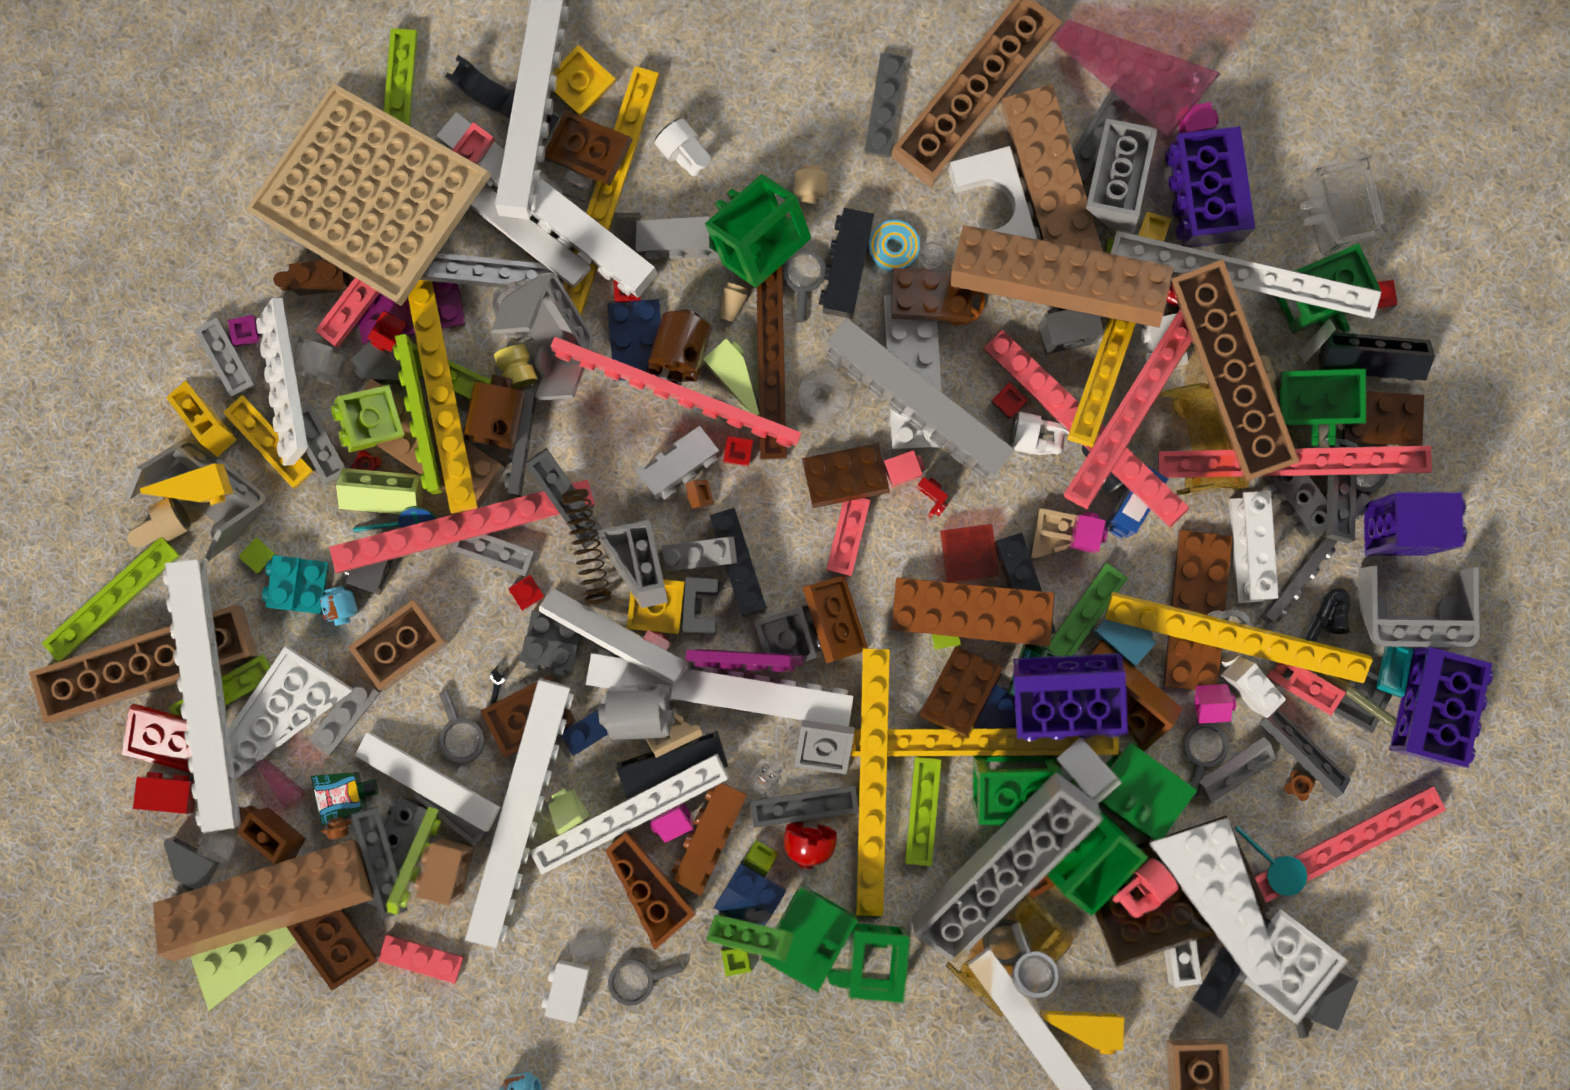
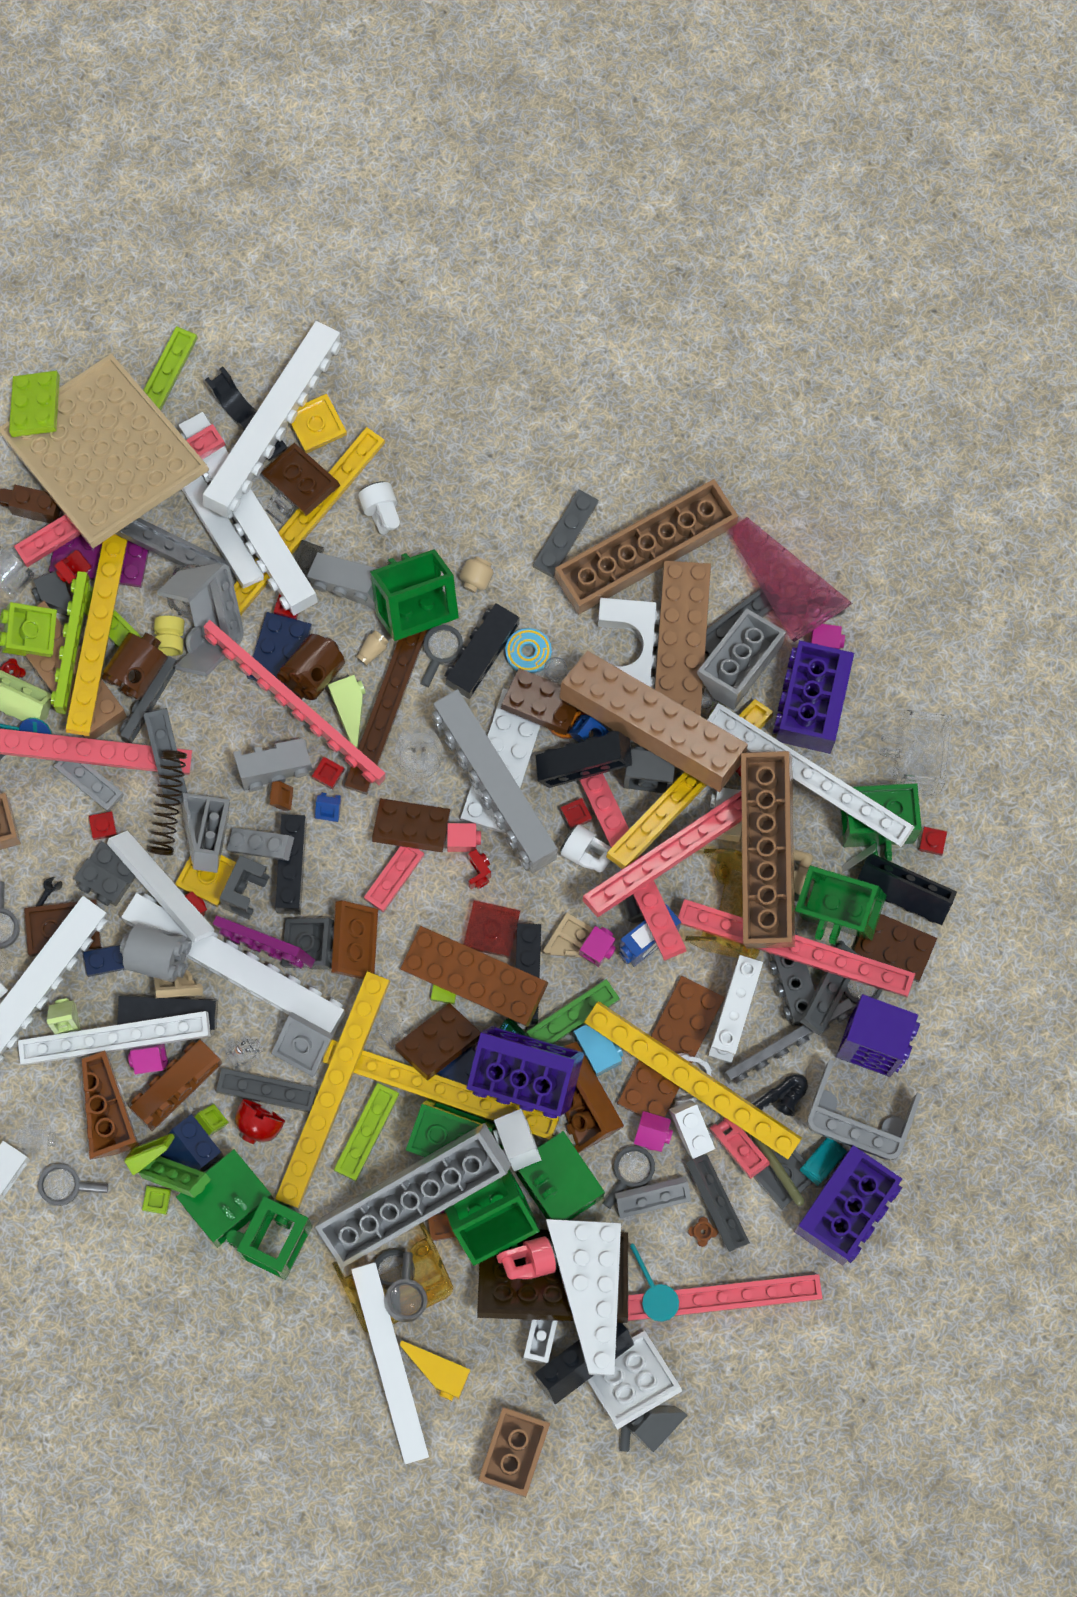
camera: 20 degrees right, 10 degrees down
(274, 167) = (34, 403): none -> lime plate
(710, 919) = (144, 1154): none -> lime slope
(752, 488) = (328, 807): none -> blue tile
(984, 308) = (582, 727): none -> blue brick
(1001, 342) = (583, 759): none -> black brick

